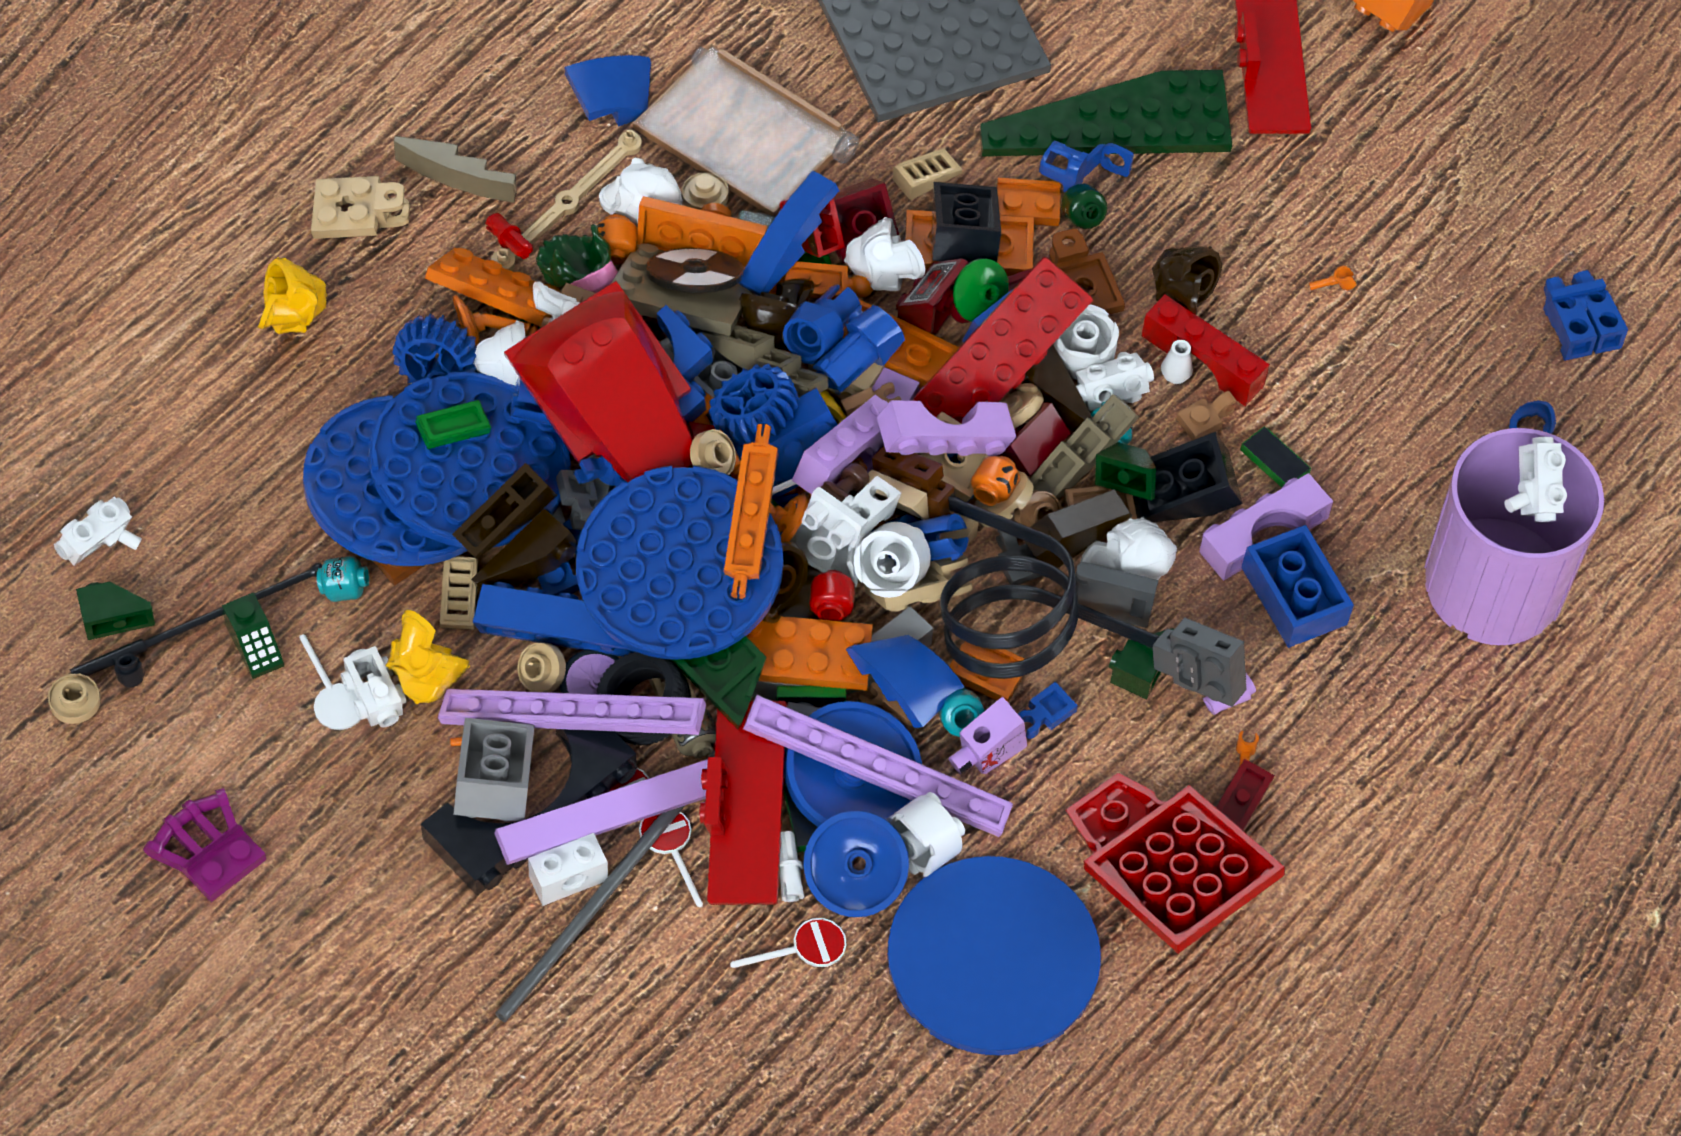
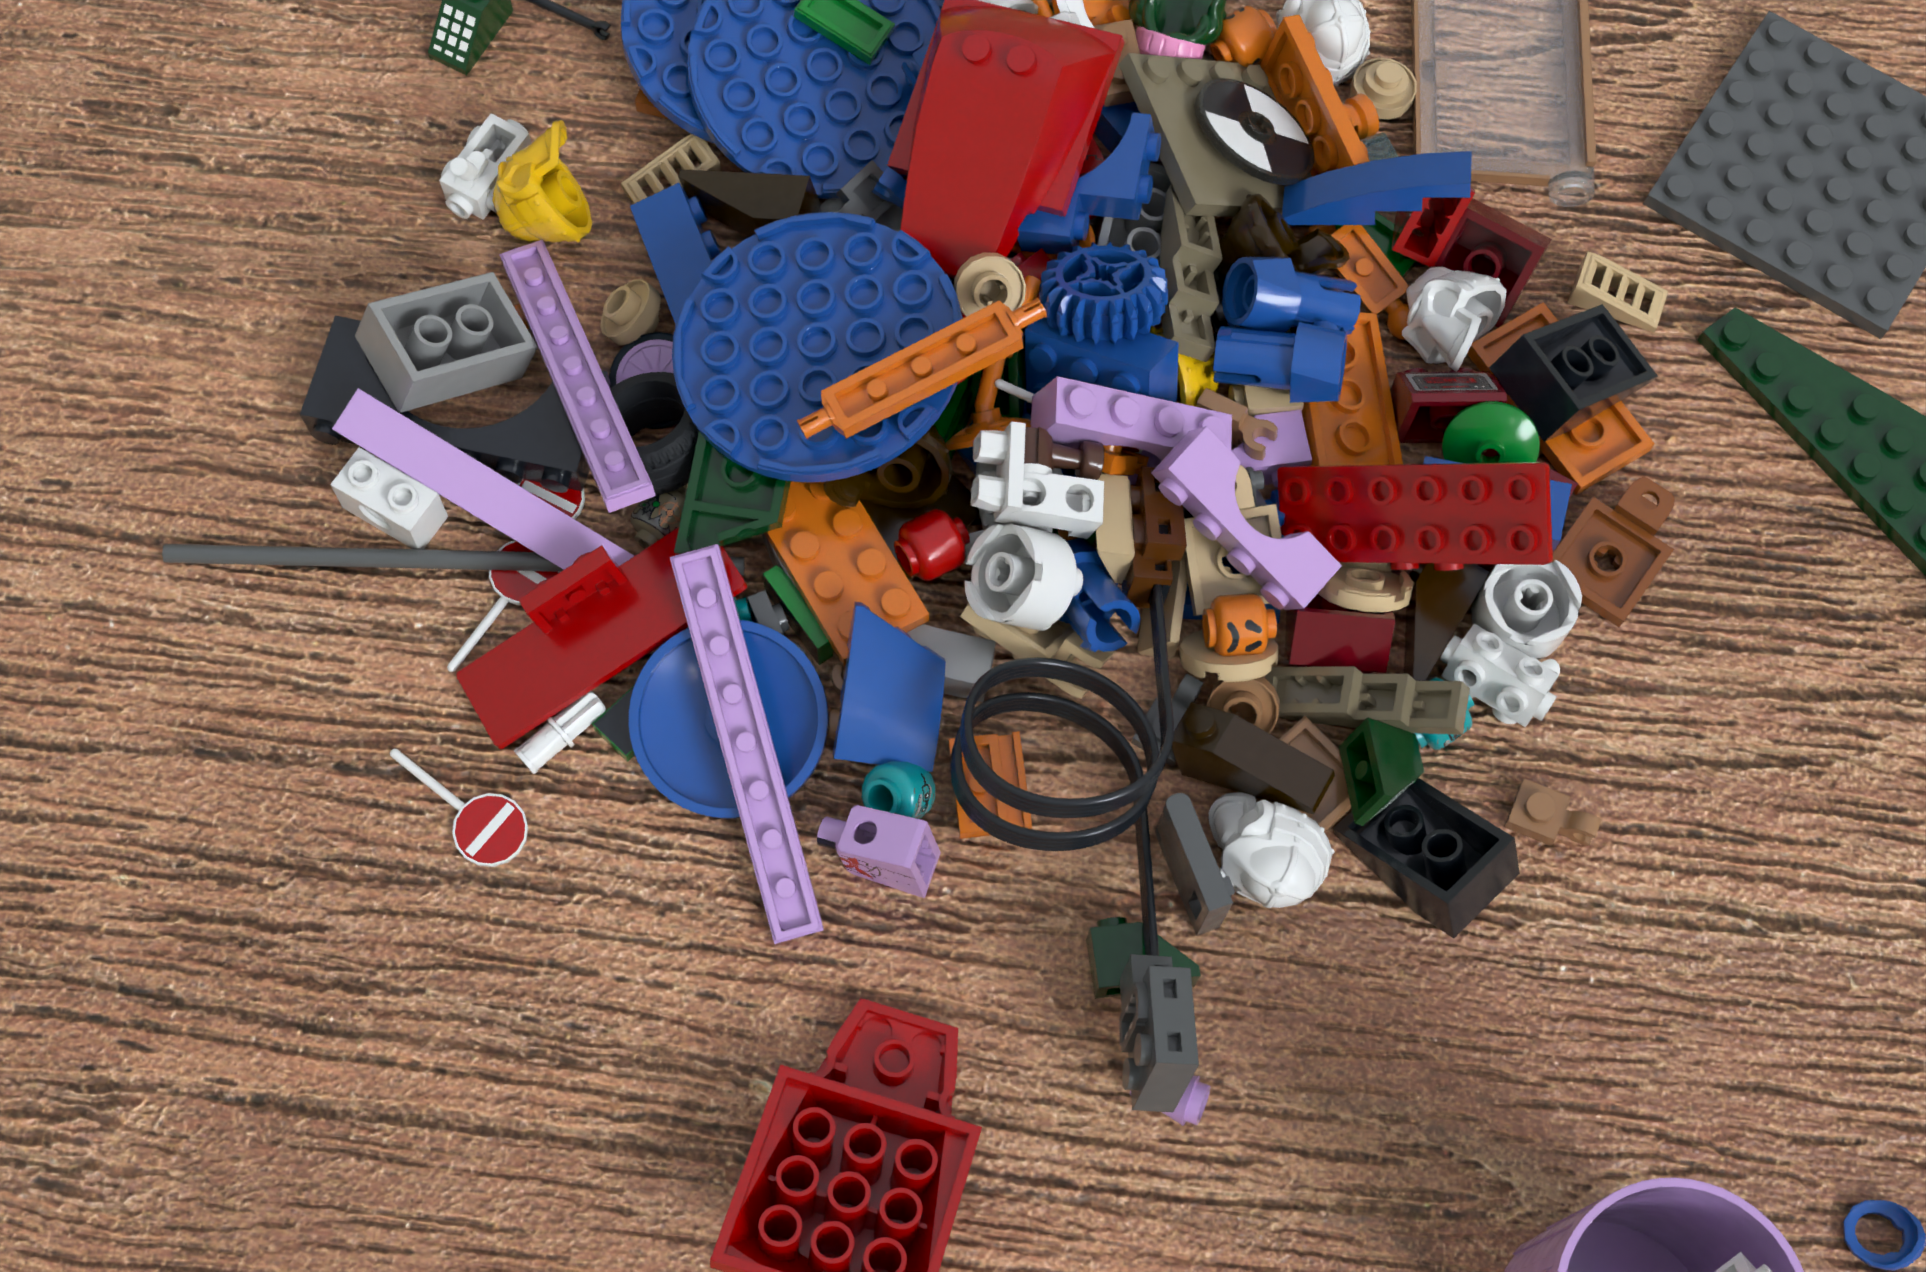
camera: 55 degrees right, 10 degrees up
(220, 862) = (187, 167): magenta plate -> none
(333, 704) = (450, 141): white piece -> none
(342, 578) = (598, 55): teal head -> none
(505, 511) = (772, 138): dark brown slope -> none
(831, 866) = (582, 800): blue dish -> none
(928, 833) = (692, 852): white brick -> none
(994, 955) = (602, 1041): blue tile -> none
(1030, 199) = (1679, 426): orange plate -> none
(1048, 708) = (988, 891): blue plate -> none
(1082, 163) = (1768, 447): blue piece -> none
(1084, 206) = (1719, 488): dark green head -> none
(1177, 364) = (1592, 735): white cone -> none
(1187, 275) = (1721, 668): dark brown head -> none
(1230, 362) = (1642, 791): red arch -> none
(1245, 793) = (1023, 1205): dark red plate -> none
(1246, 749) = (1102, 1168): orange hand -> none
(1274, 457) = (1557, 939): black tile -> none
(1294, 505) = (1507, 1007): lavender arch -> none
(1297, 586) = (1383, 1081): blue brick -> none
(1341, 276) = (1887, 850): orange hand -> none

